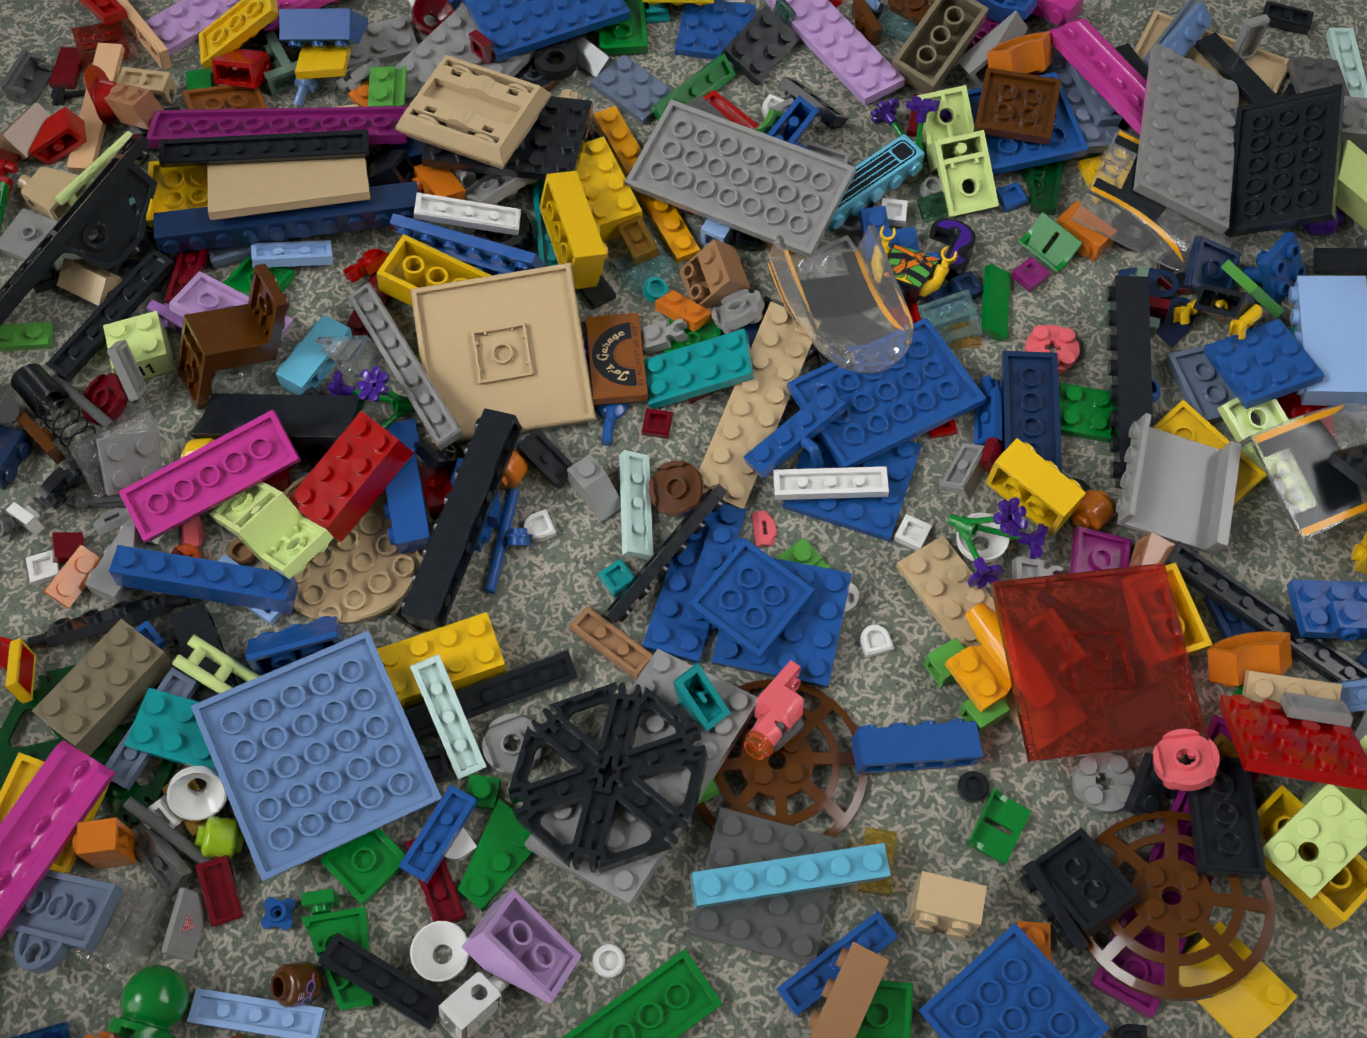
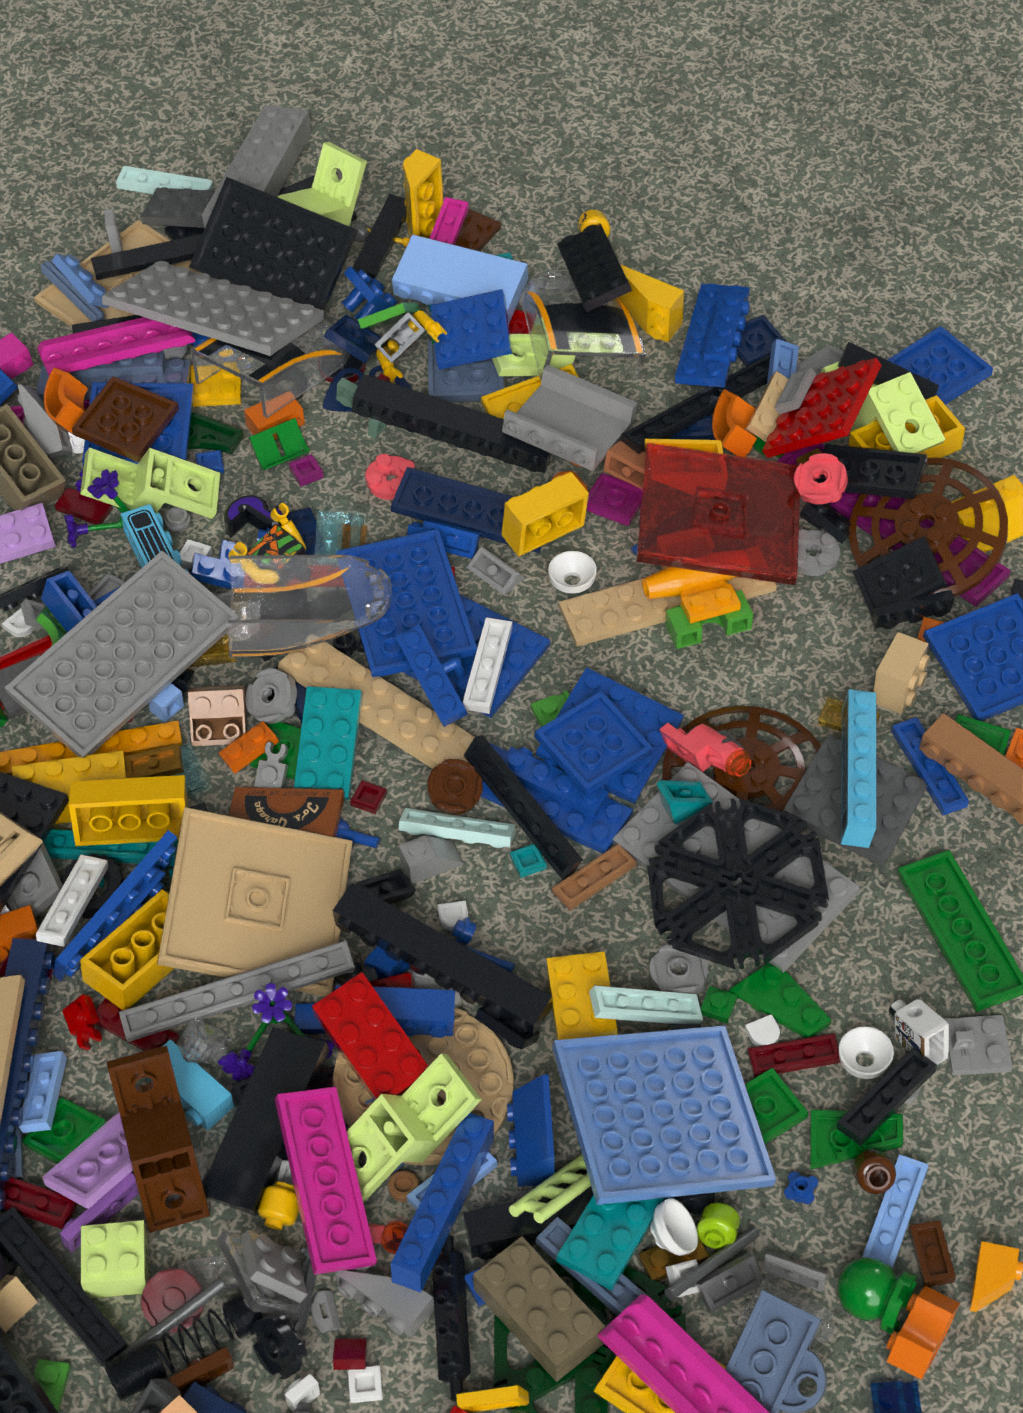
camera: 75 degrees left, 10 degrees down
(72, 577) = (388, 1348): orange plate -> none
(105, 843) = (707, 1318): orange brick -> none
(127, 369) = (157, 1254): light grey tile -> none
(219, 890) = (769, 1234): dark red tile -> none
(320, 901) = (799, 1146): green plate -> none
(438, 834) = (757, 1036): blue plate -> none
(500, 689) = (619, 957): black plate -> none
(522, 947) = (873, 986): lavender slope -> none
(608, 961) = (895, 931): white tile -> none
(654, 289) = (213, 767): teal plate -> none
(758, 519) = (519, 739): coral piece -> none
(875, 641) = (646, 676): white tile -> none
(912, 532) = (548, 624): white tile -> none
(916, 746) = (756, 666): blue brick -> none
(932, 207) = (201, 523): clear green tile -> none
(973, 786) = (797, 640): black tile -> none
(991, 453) = (492, 545): dark red tile -> none
(995, 302) = (324, 502): green tile -> none
(1004, 813) = (830, 619): green piece -> none
(1010, 522) = (587, 533): dark purple plant -> none
(1032, 568) = (615, 548): light grey plate -> none
(1084, 412) = (467, 467): green plate -> none
(1288, 17) = (87, 207): black plate -> none

